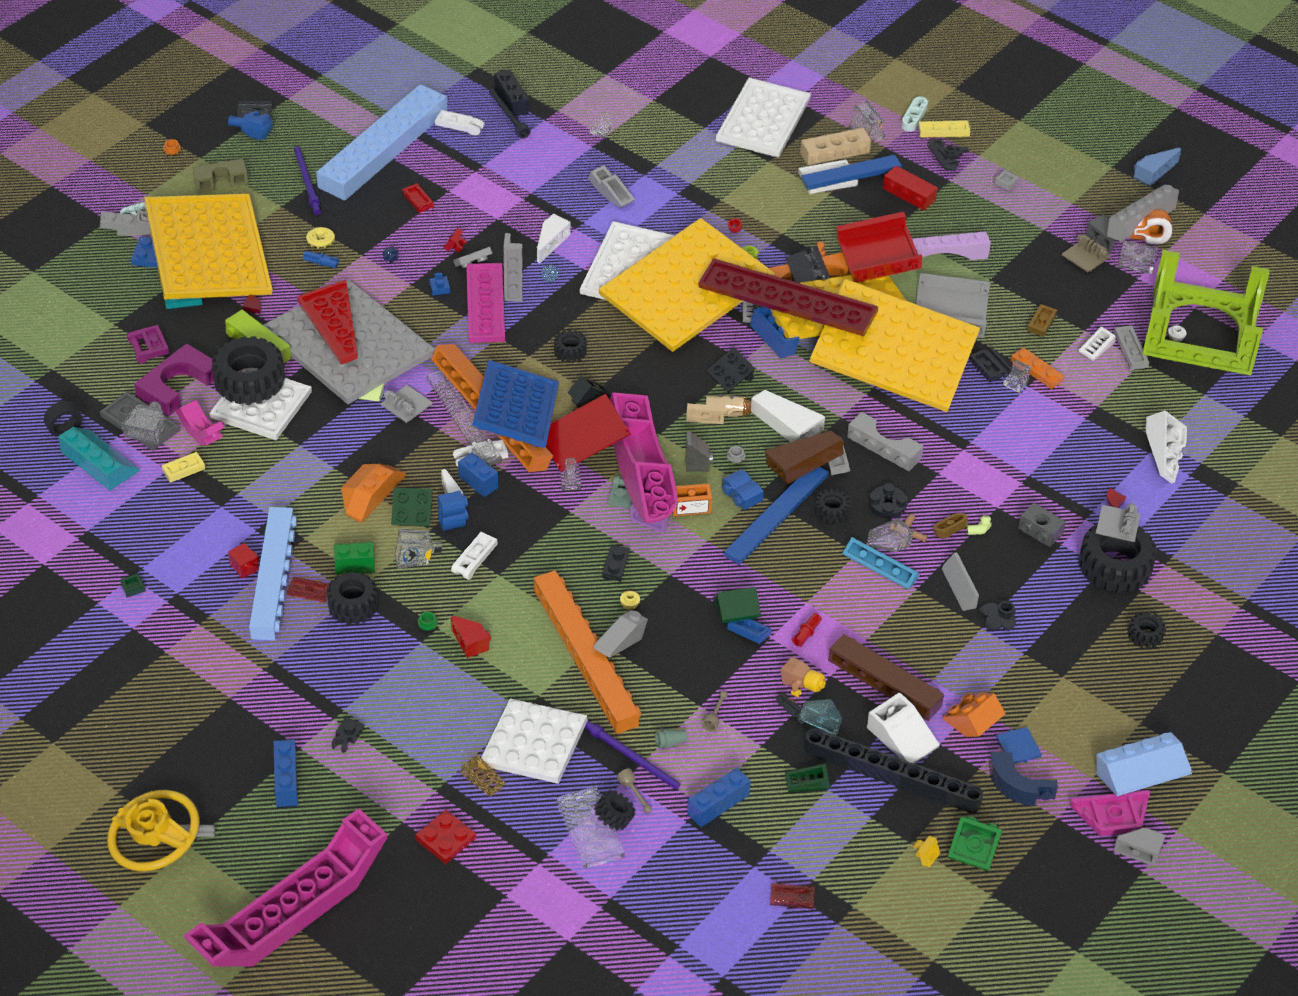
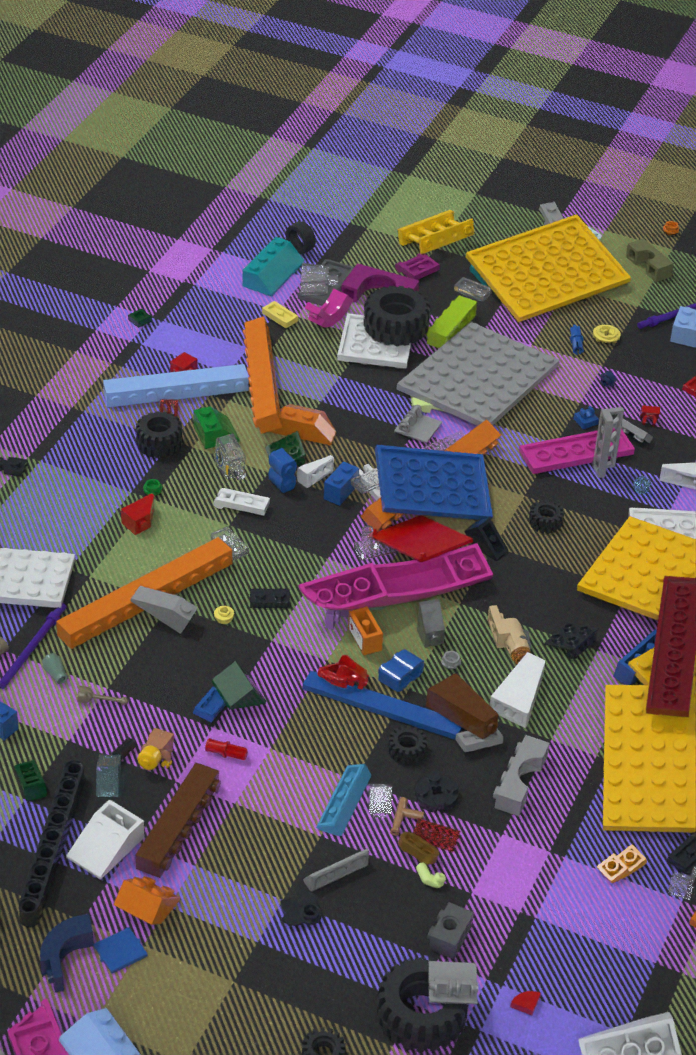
camera: 75 degrees right, 5 degrees down
(90, 324) = (436, 231): none -> yellow fence
(207, 311) = (472, 289): none -> clear plate
(252, 304) = (497, 313): dark red tile -> none
(294, 494) = (262, 375): none -> orange brick
(331, 316) = (493, 351): red wing -> none
(524, 577) = (238, 547): none -> clear plate
(739, 520) = (344, 673): none -> red piece
(927, 522) = (435, 837): none -> clear red tile
(988, 409) = (622, 865): none -> light orange slope

